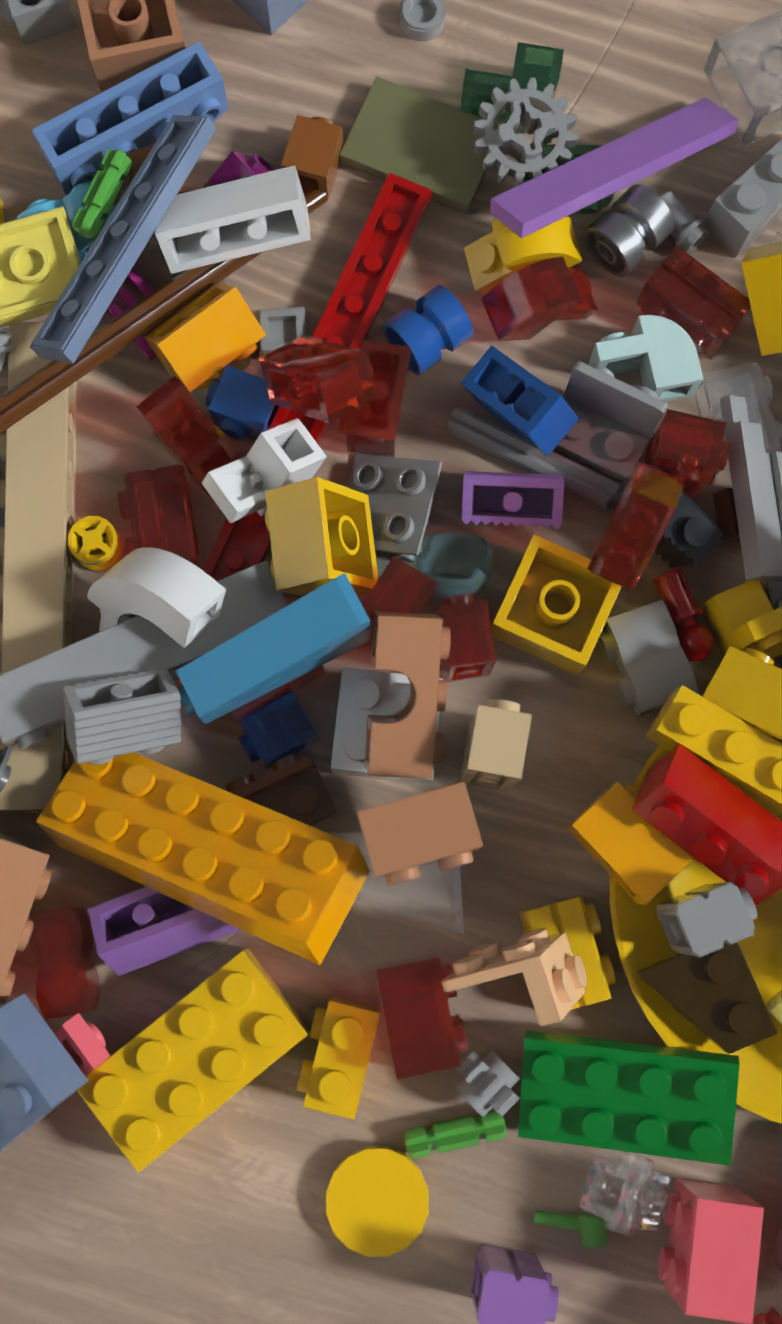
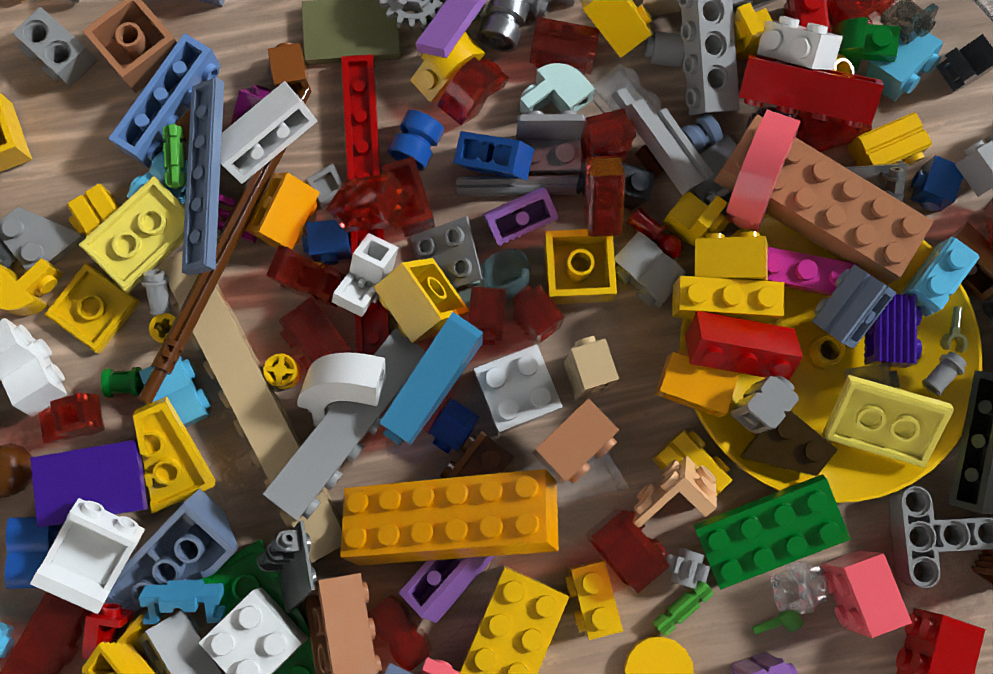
camera: 30 degrees left, 0 degrees up
(122, 716) = (360, 466): light grey brick -> none
(408, 740) = (537, 391): nougat arch -> none

